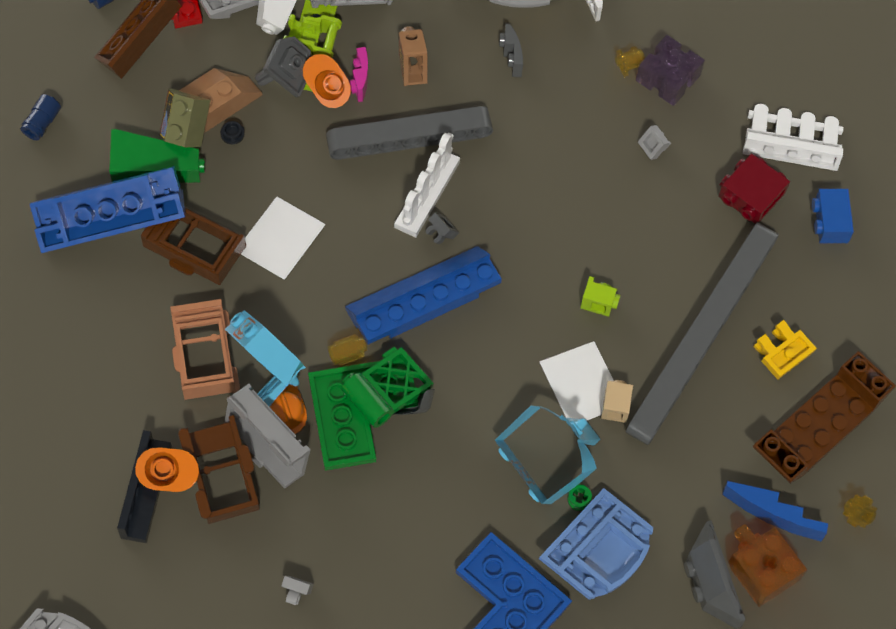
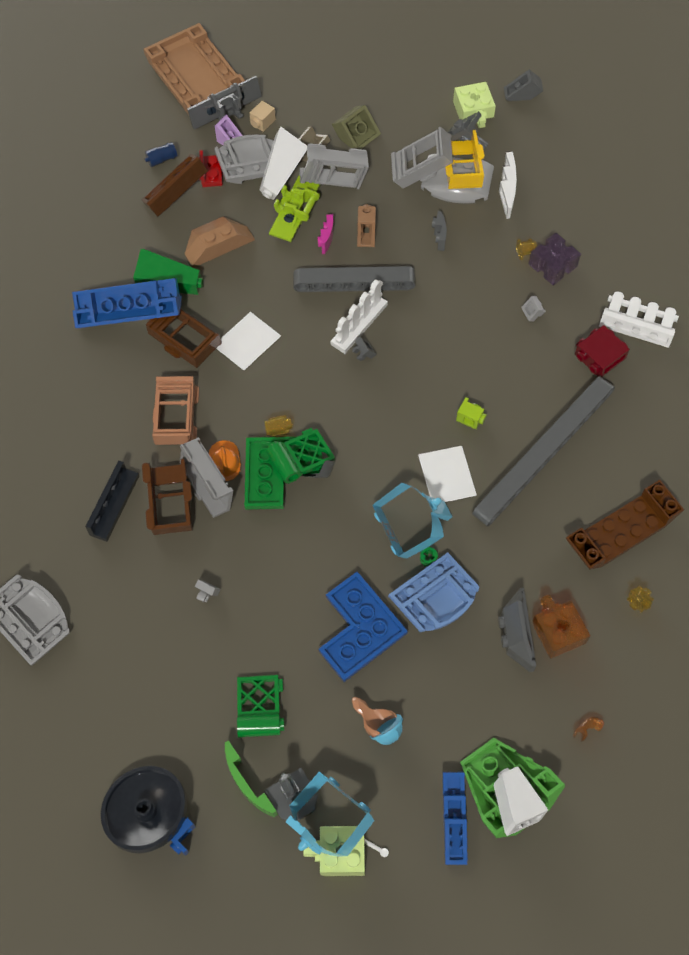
camera: 15 degrees right, 0 degrees up
(40, 117) = (94, 235): dark blue piece -> none
(167, 469) = (128, 490): orange piece -> none
(184, 119) = (193, 248): olive slope -> none
(232, 132) = (227, 263): black plate -> none
(268, 352) = (217, 418): medium azure piece -> none
(286, 65) = (274, 219): dark grey piece -> none
(327, 80) = (300, 234): orange piece -> none
(424, 295) = (342, 395): blue slope -> none
(617, 401) = (469, 490): tan brick -> none
(766, 507) = (567, 584): blue slope -> none
(788, 354) = (605, 476): yellow plate -> none
(833, 216) = (659, 379): blue brick -> none

